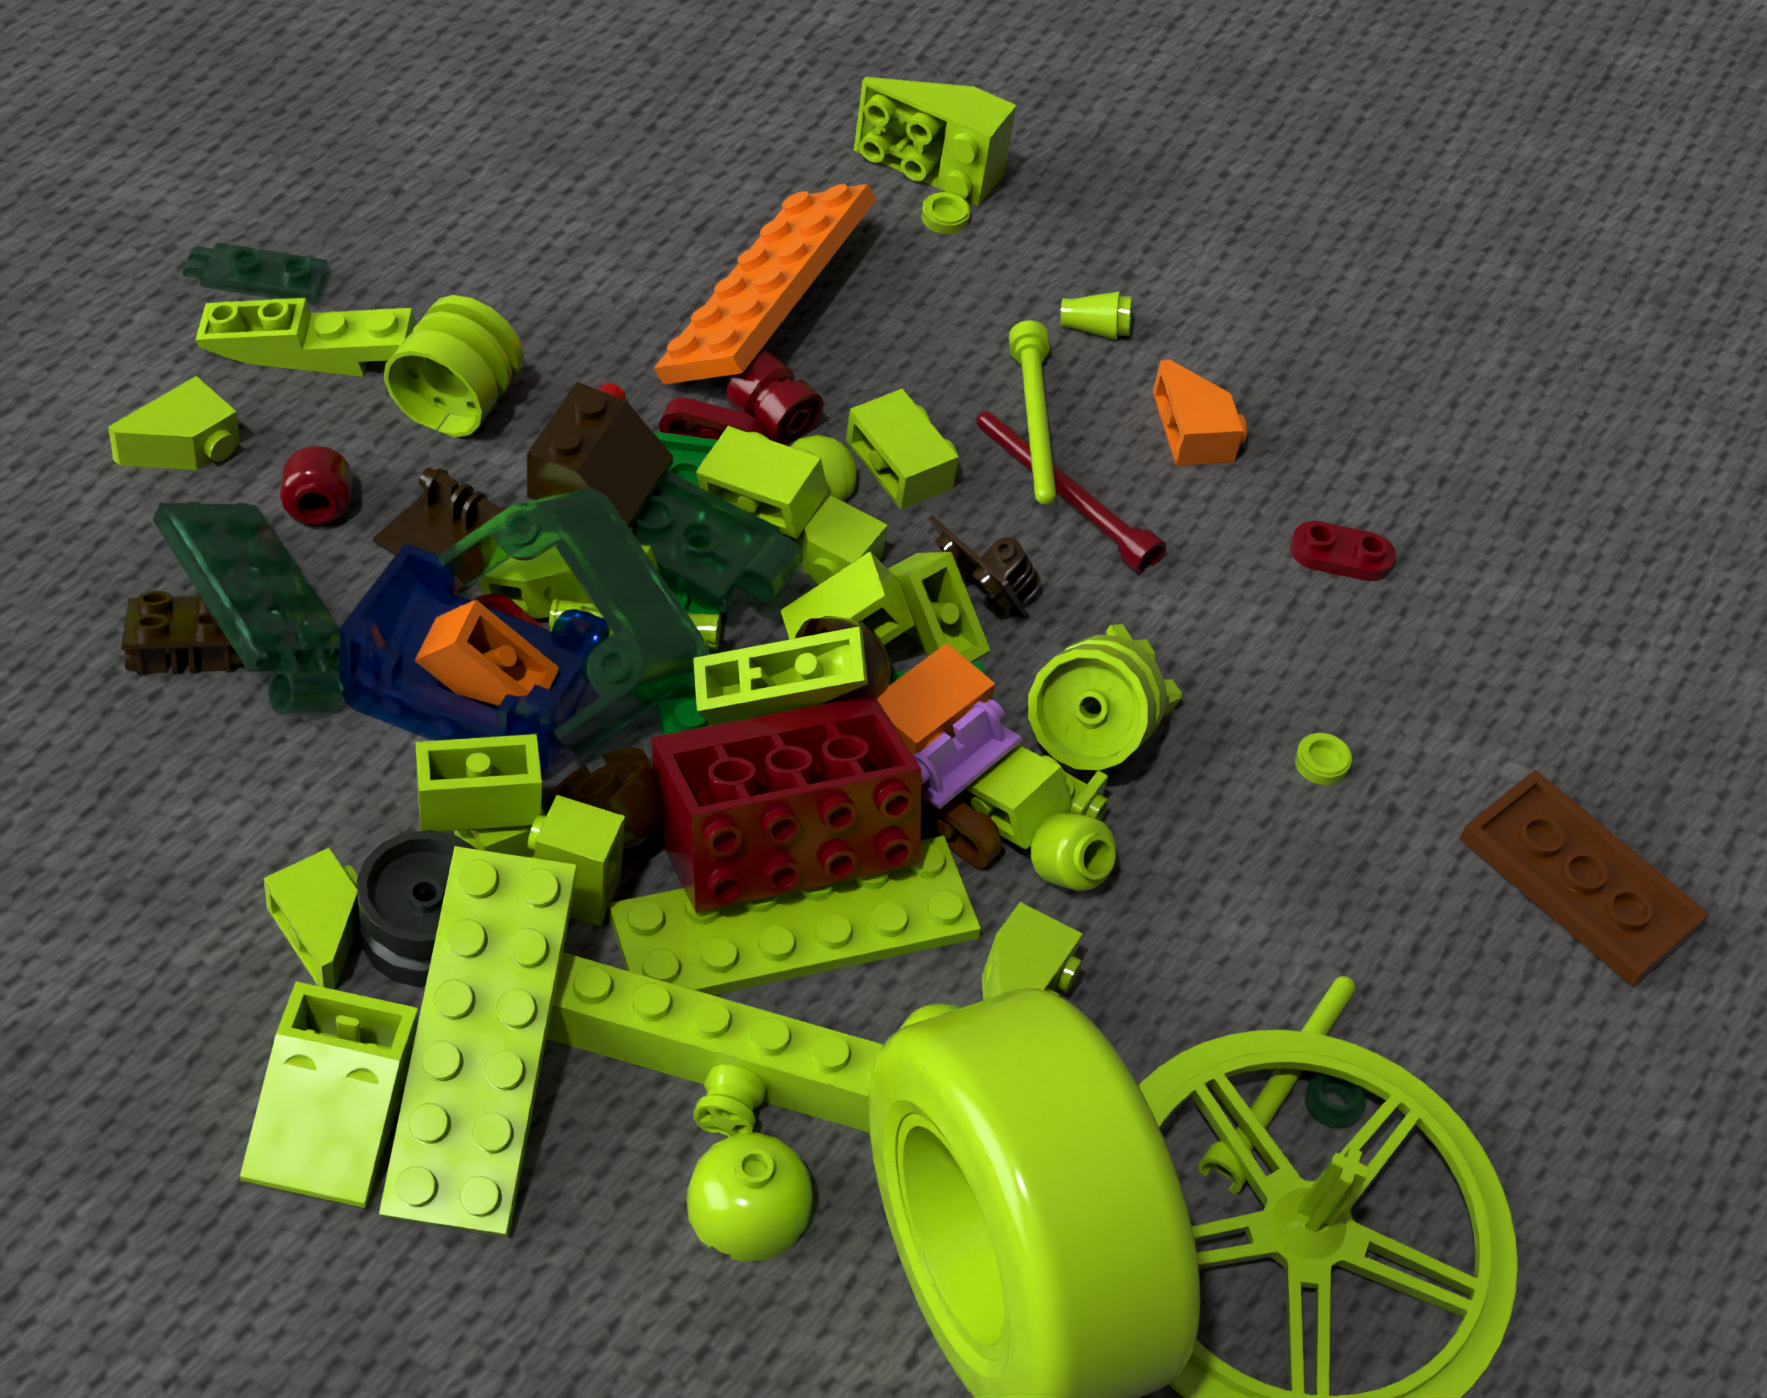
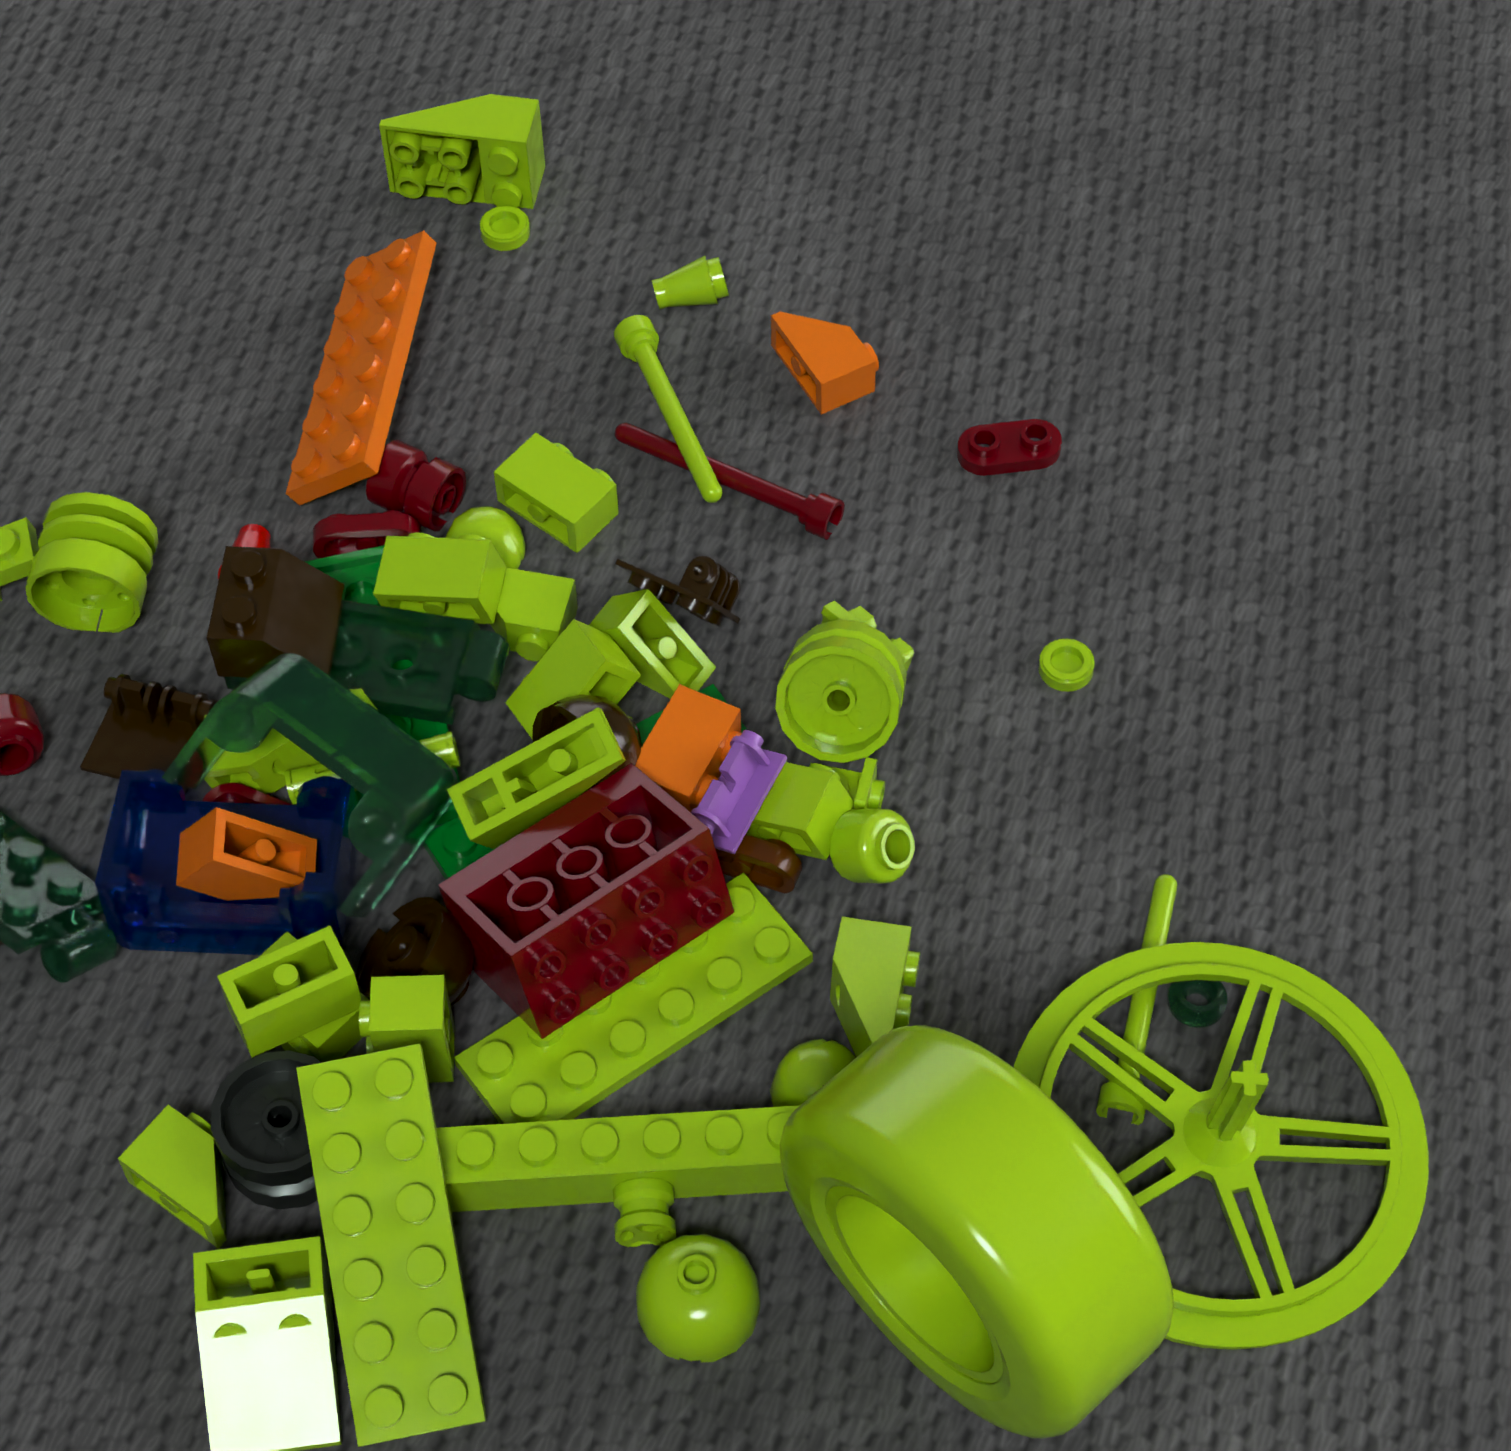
camera: 10 degrees left, 5 degrees up
(1584, 877) = (1346, 696): reddish brown plate -> none

